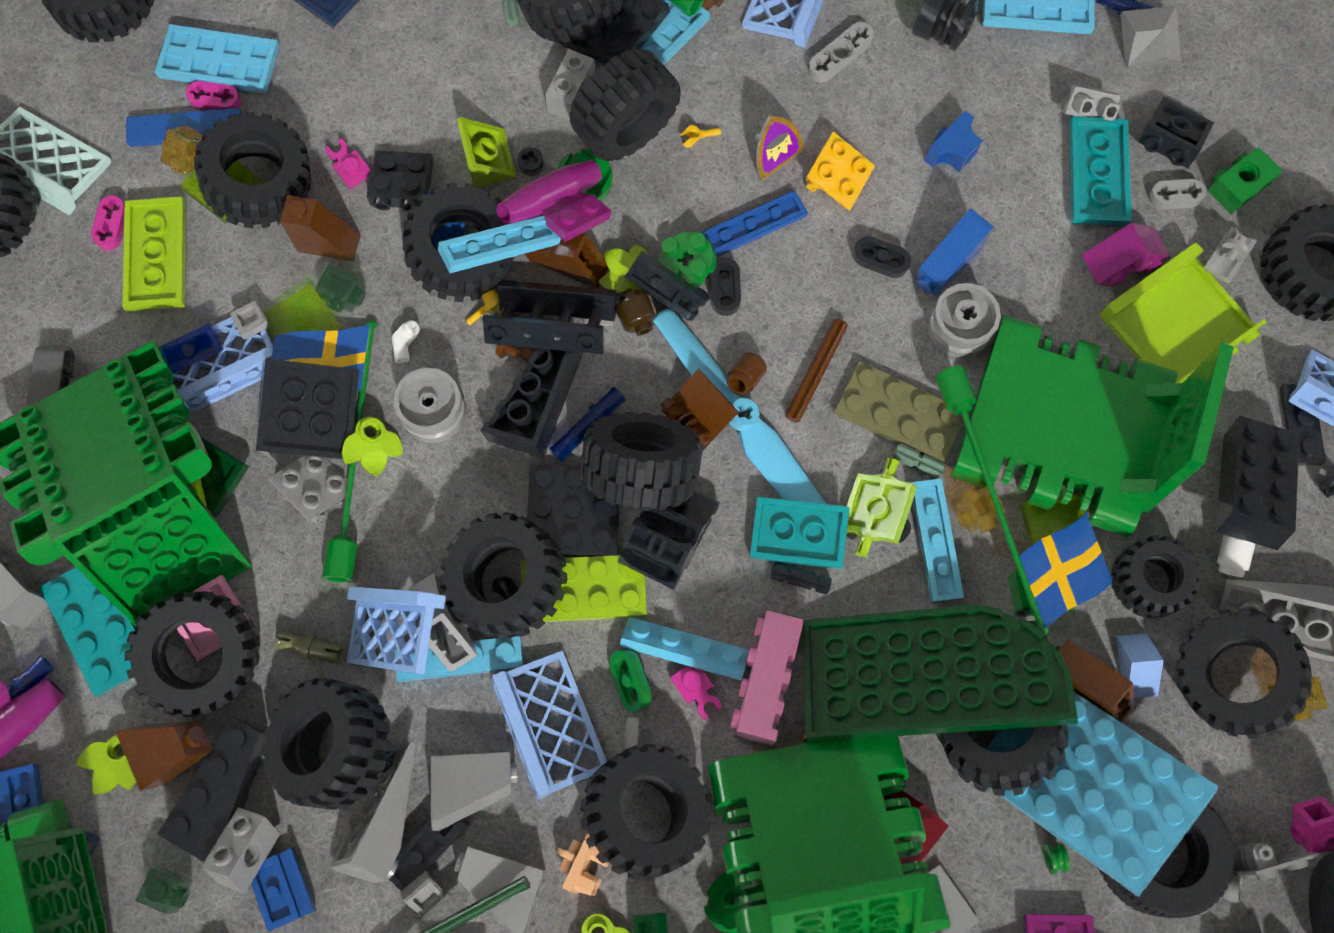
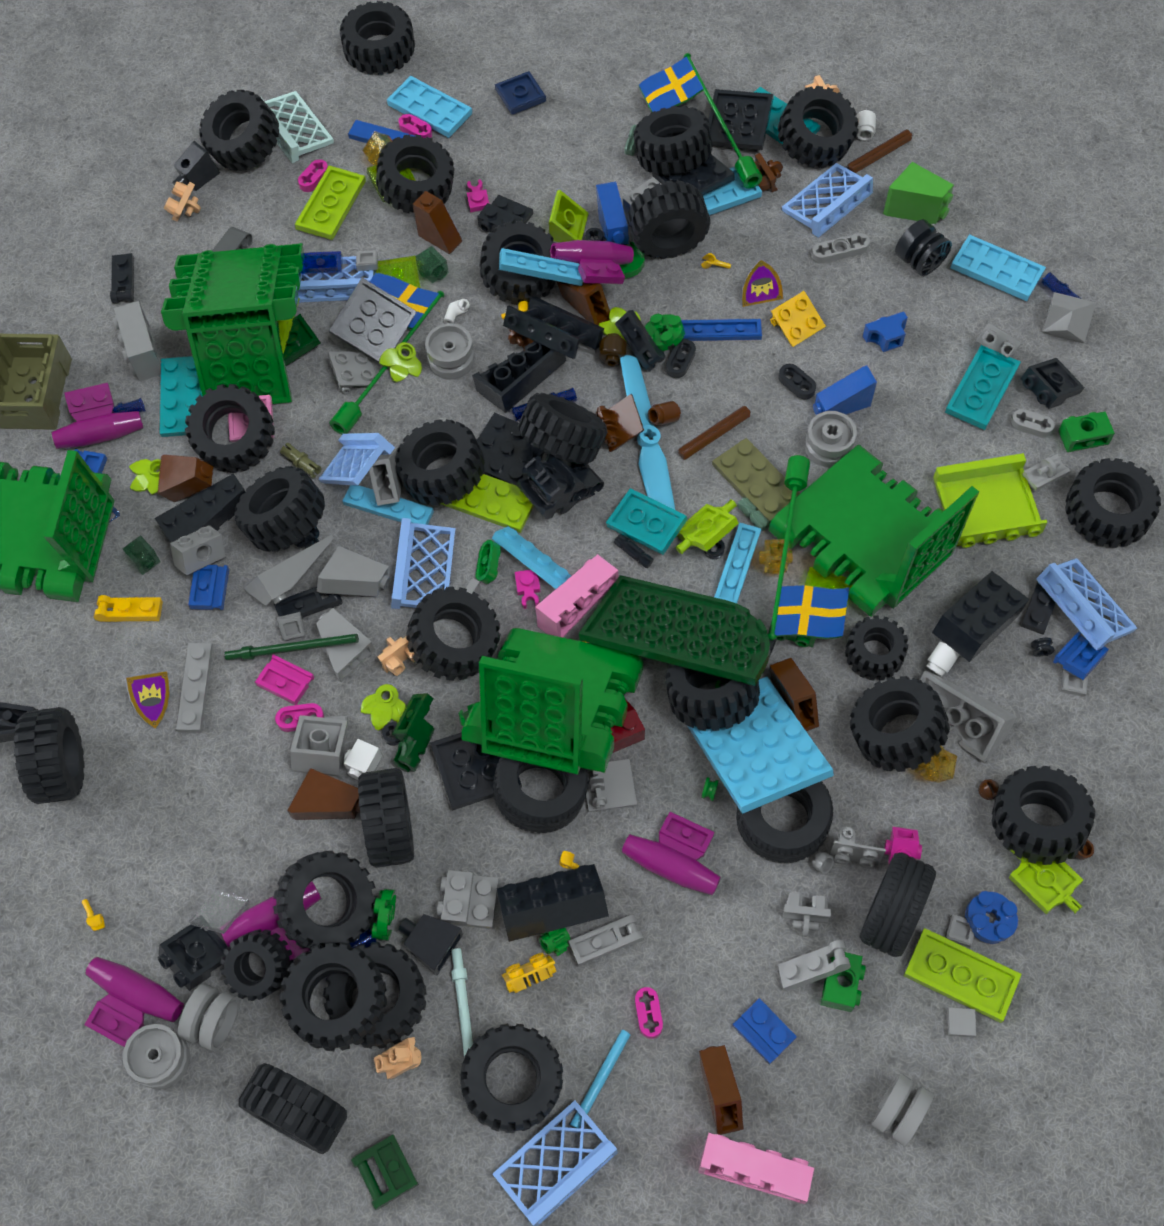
camera: 30 degrees right, 10 degrees down
(543, 124) = (612, 213): none -> blue slope
(1128, 250) = (967, 439): magenta brick -> none
(1140, 663) = (834, 701): light blue slope -> none

